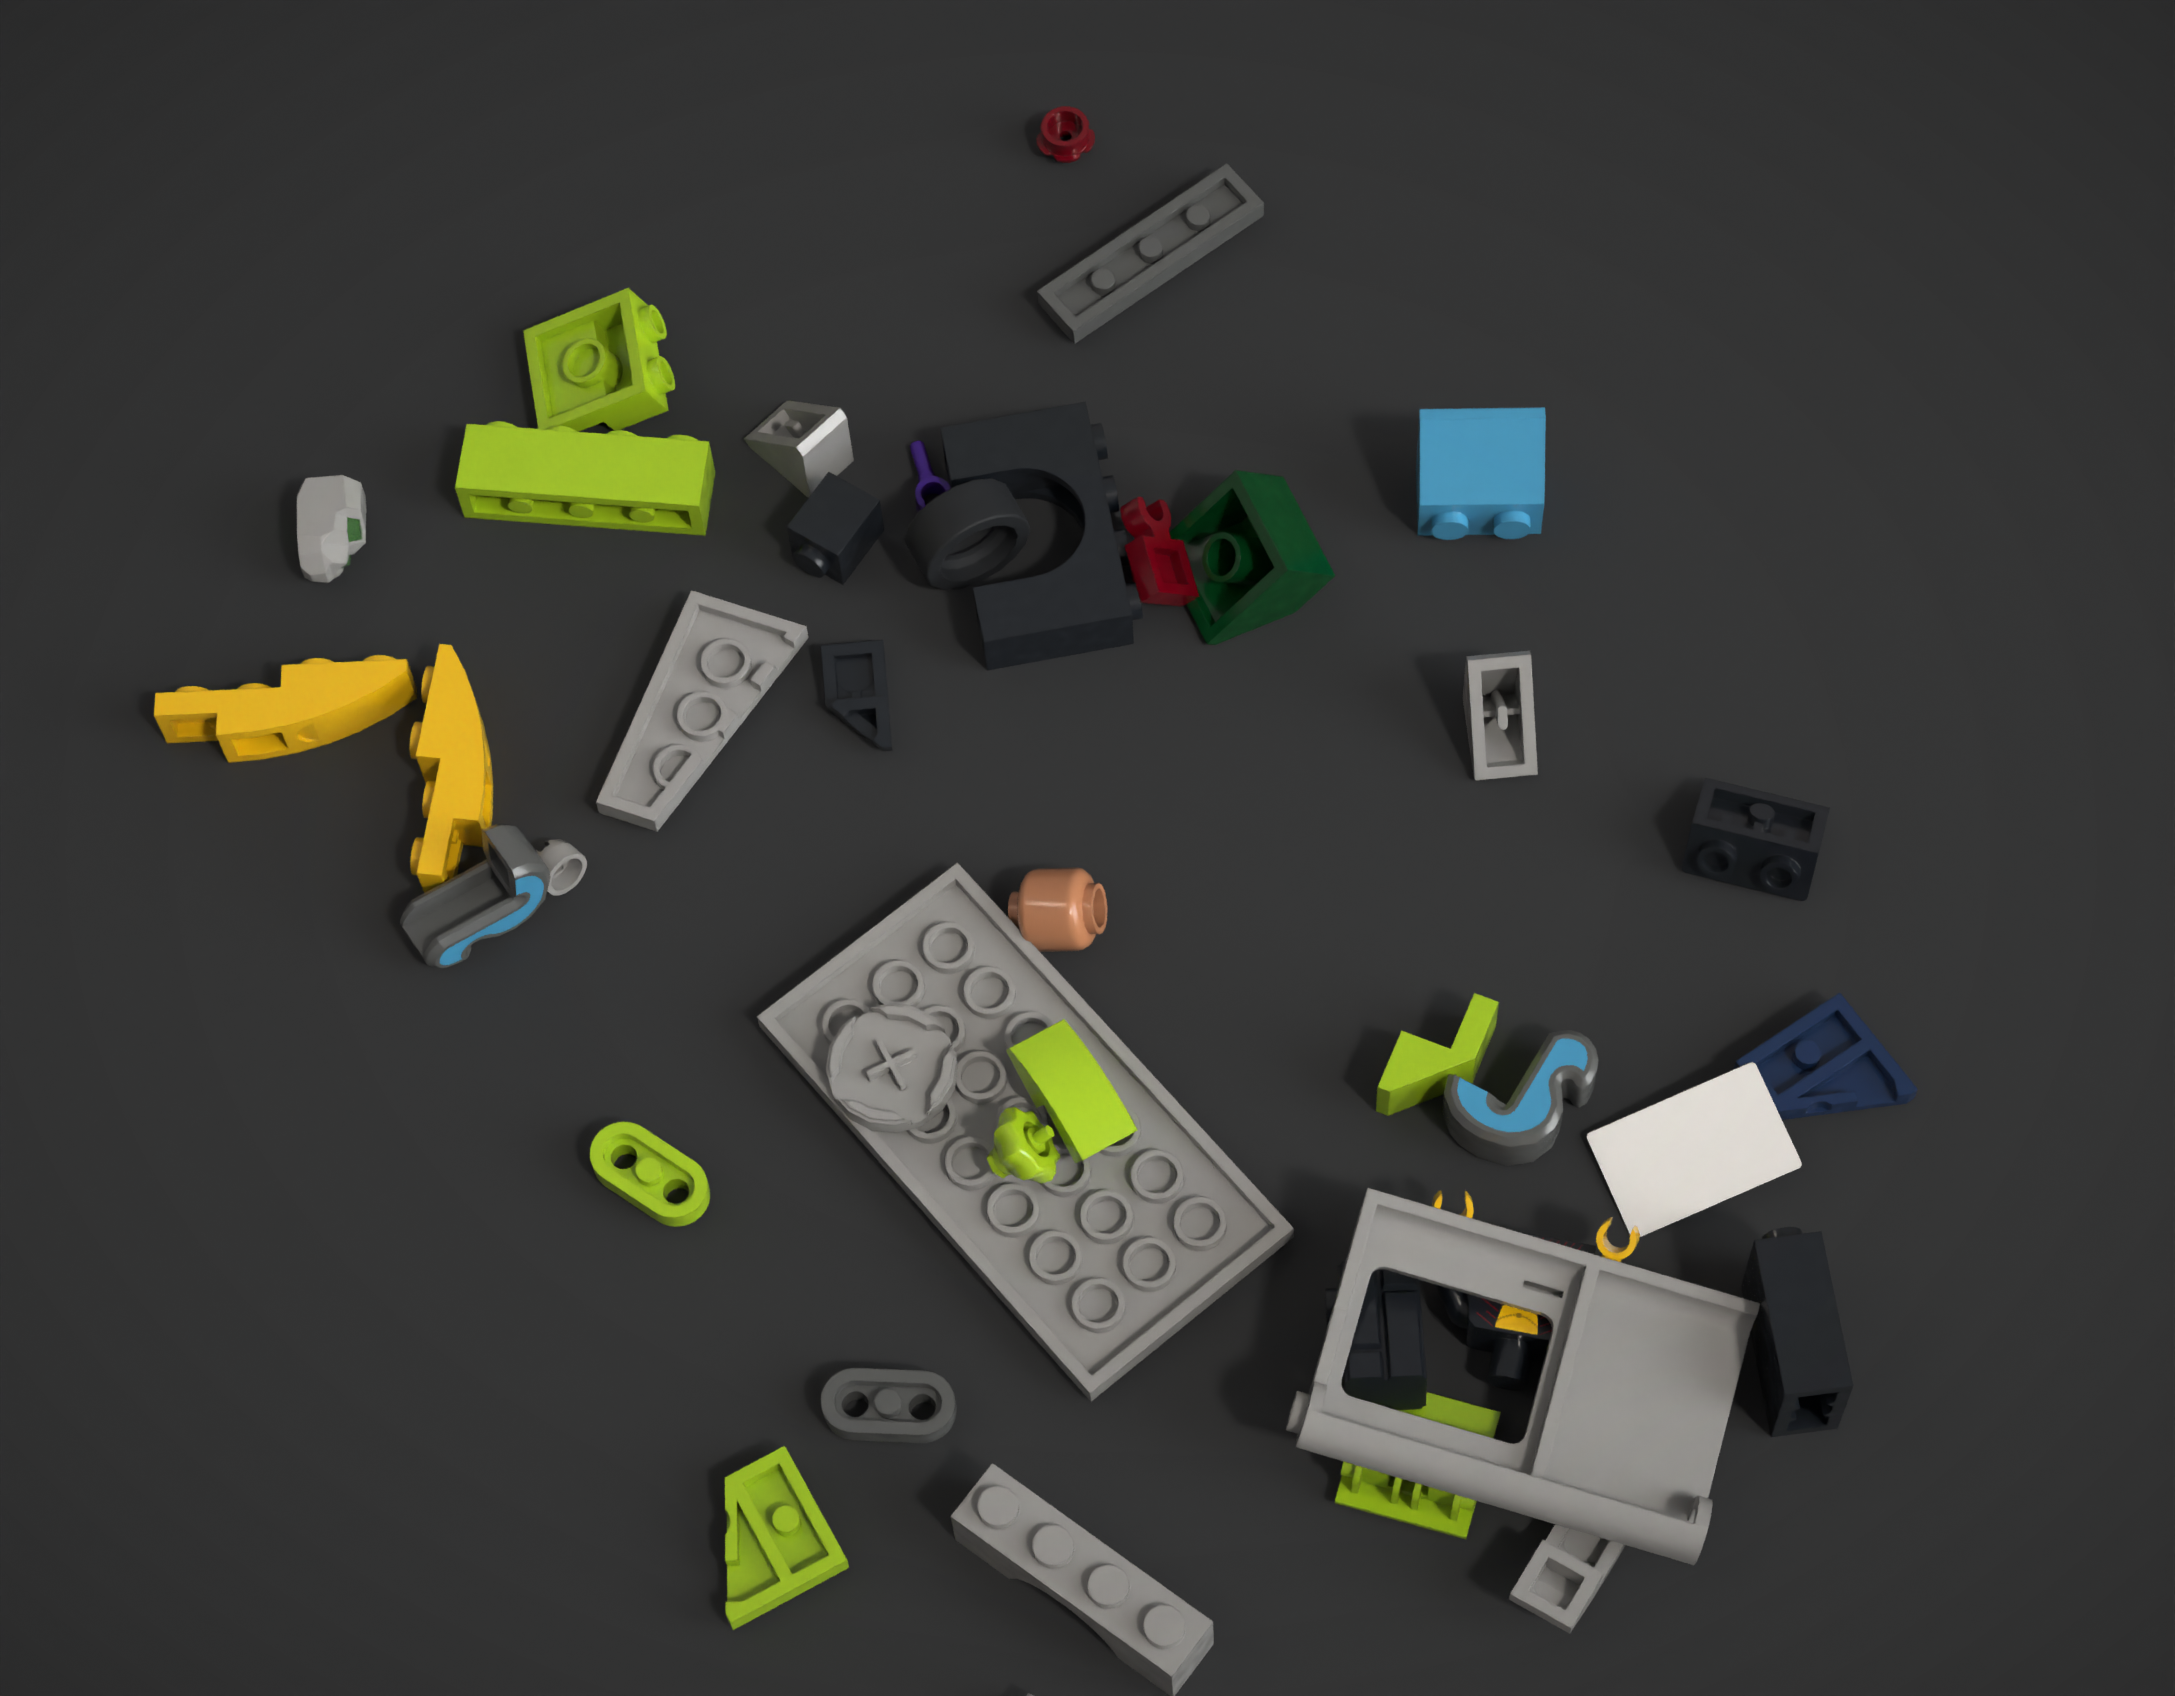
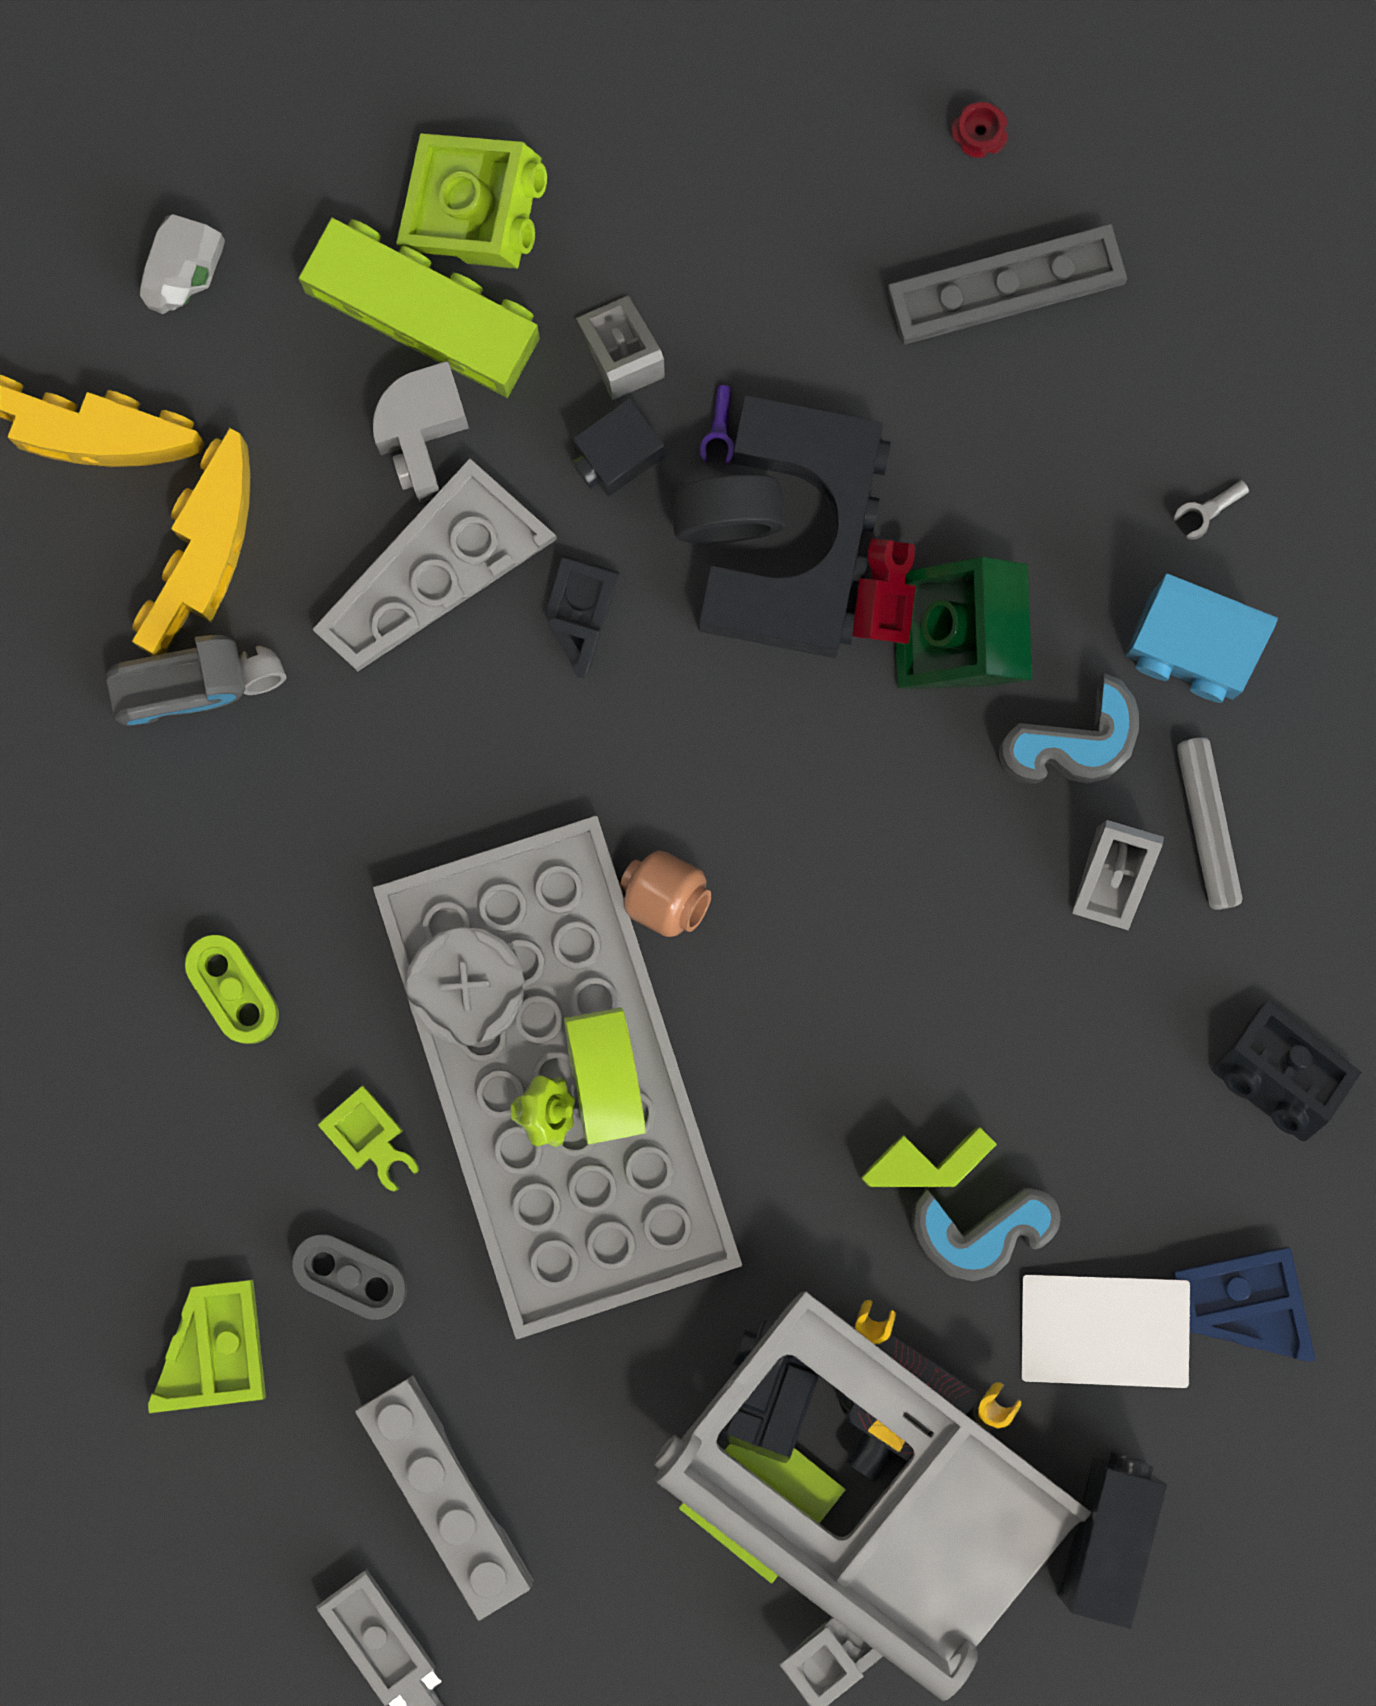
camera: 20 degrees right, 20 degrees up
(619, 575) = (415, 411): none -> light grey brick
(847, 1257) = (364, 1133): none -> lime plate
(1404, 628) = (1076, 753): none -> dark grey animal
(1436, 375) = (1212, 507): none -> light grey hand
(1571, 646) = (1209, 823): none -> light grey axle

